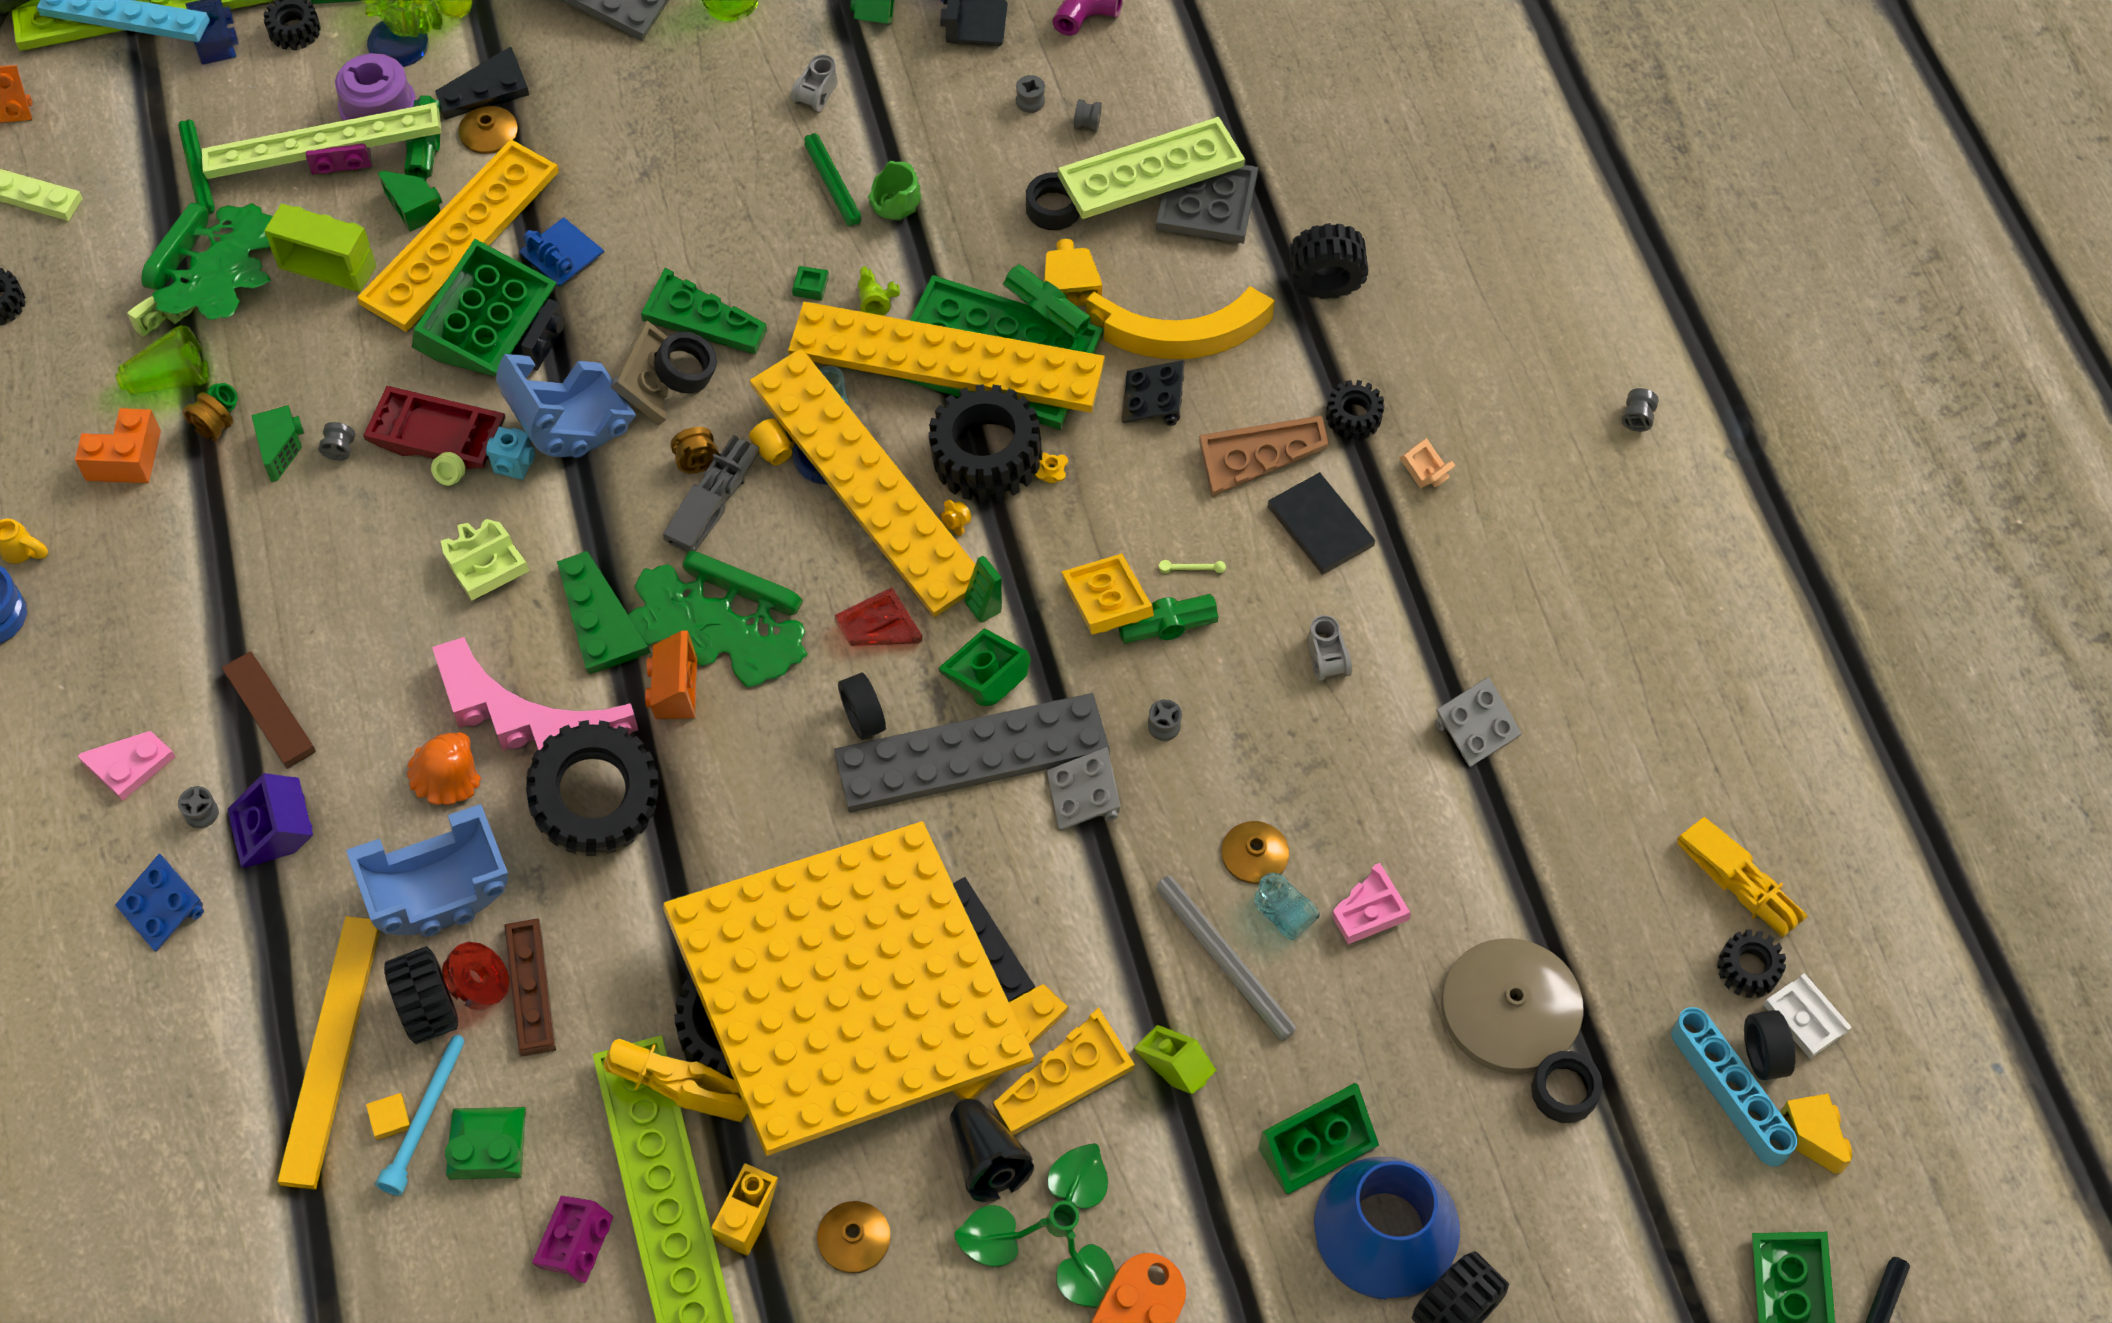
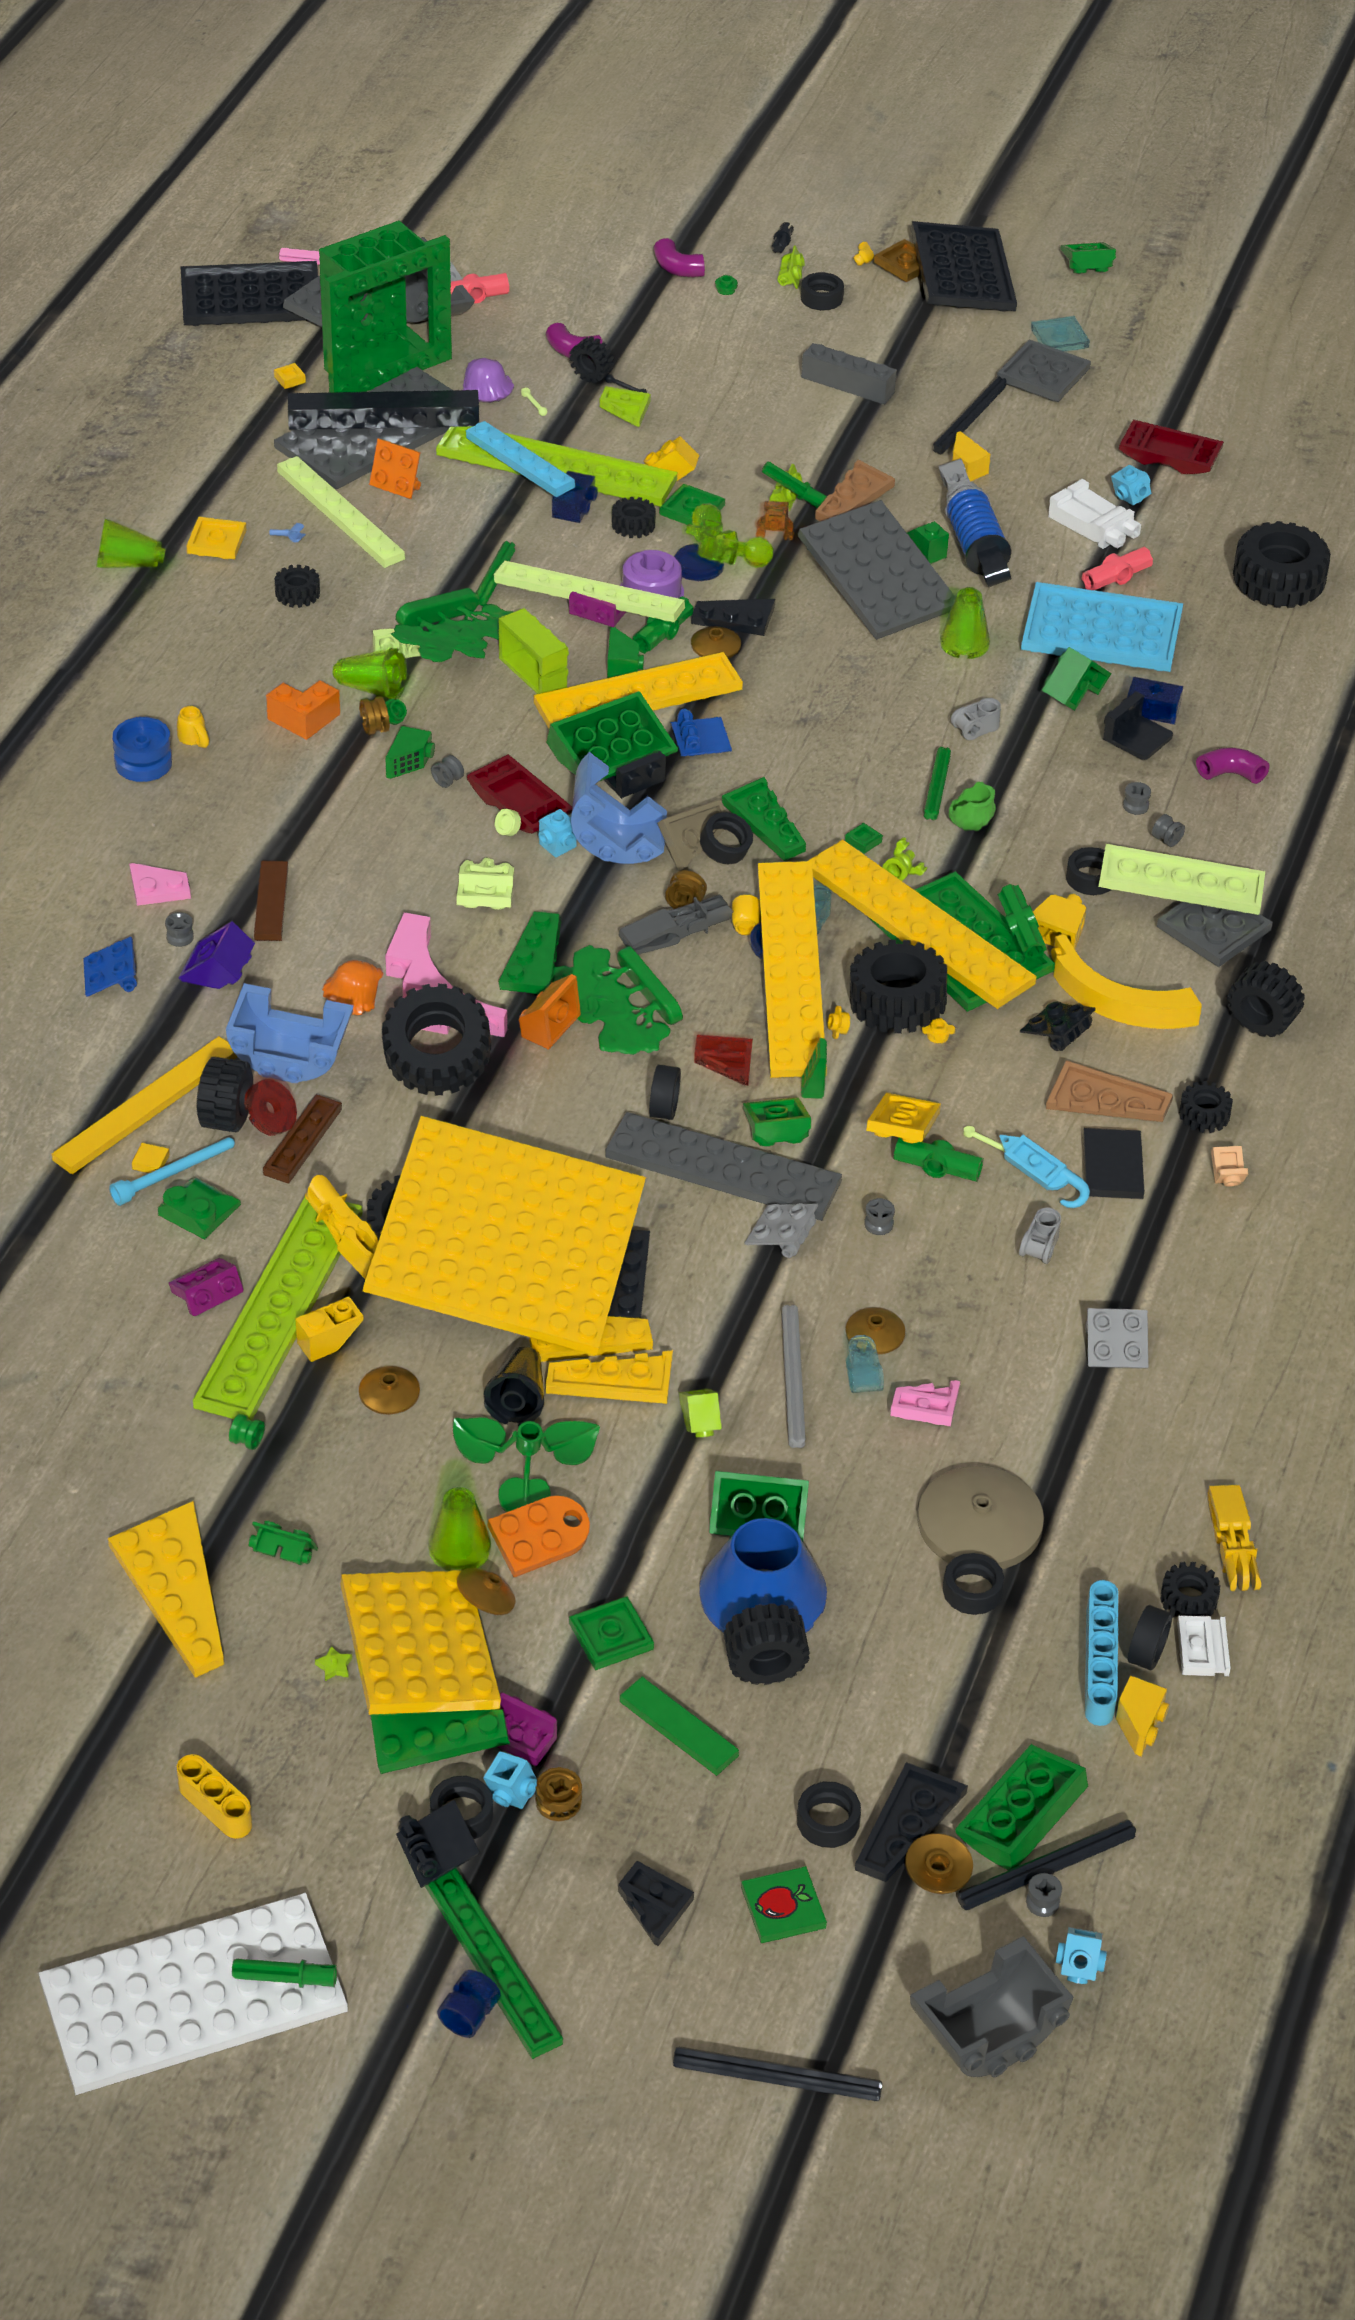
camera: 35 degrees right, 15 degrees down
(1268, 569) = (1043, 1167): none -> medium azure plate

